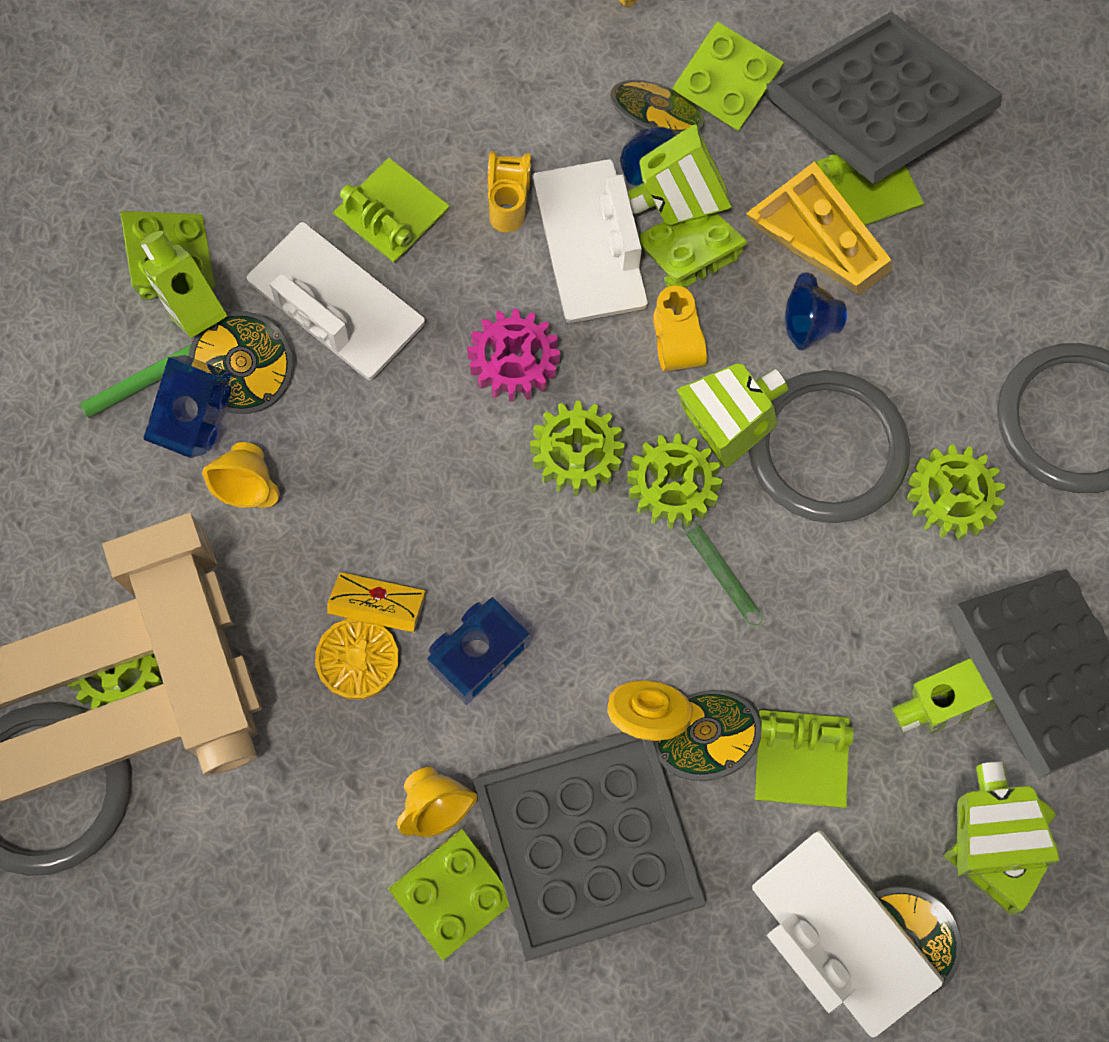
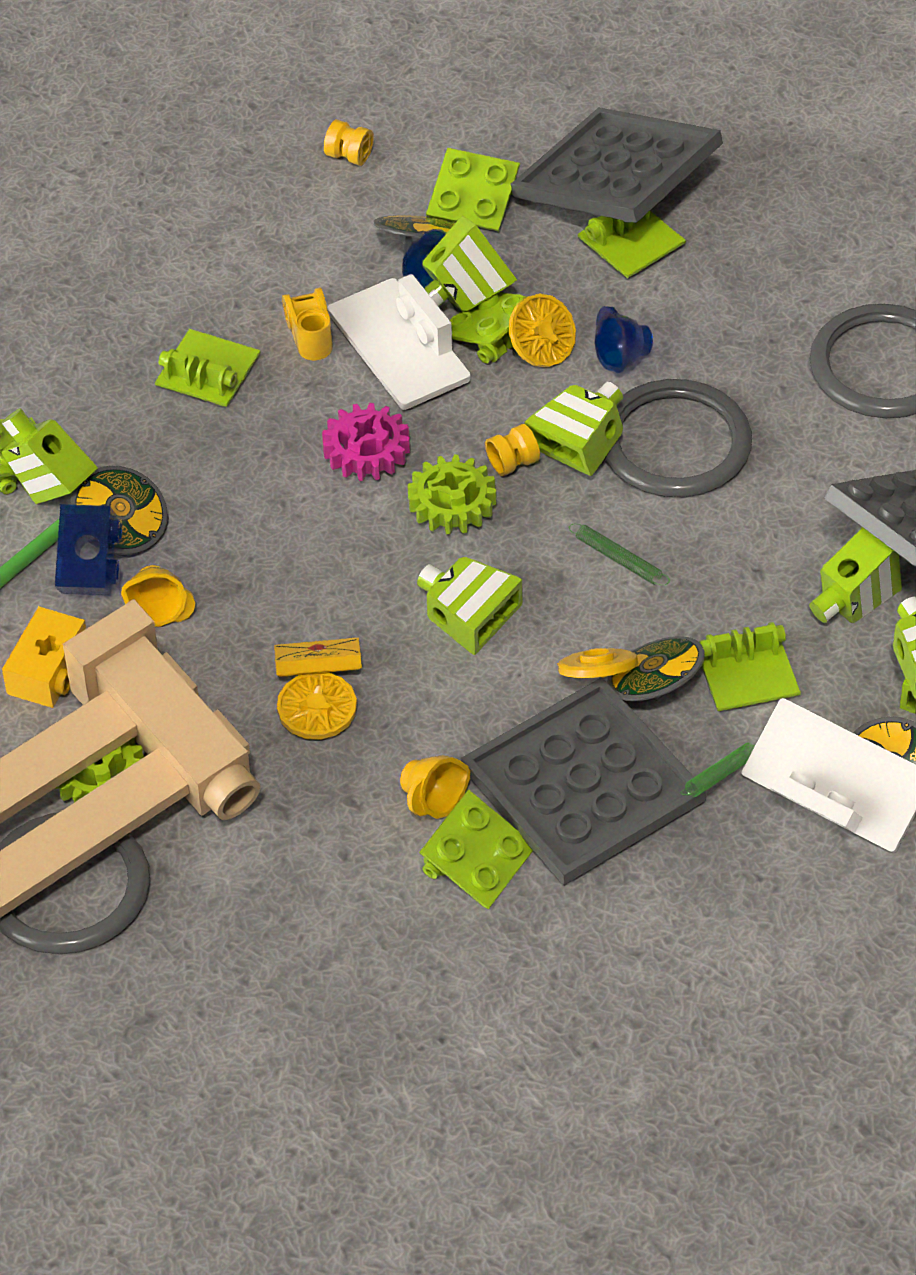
camera: 15 degrees left, 20 degrees down
(114, 494) = (38, 662): none -> yellow brick
(336, 301) = (185, 447): white bracket -> none
(471, 675) = (425, 664): clear blue brick -> none
(549, 585) = (470, 600): none -> lime torso
(656, 412) = (512, 449): none -> yellow wheel
(674, 461) = (549, 495): lime gear -> none
(678, 336) = (507, 384): yellow piece -> none
(720, 888) = (724, 774): none -> bright green piece
(736, 275) = (542, 330): none -> yellow wheel
(823, 230) = (599, 271): yellow wedge -> none
(972, 504) = (800, 437): lime gear -> none

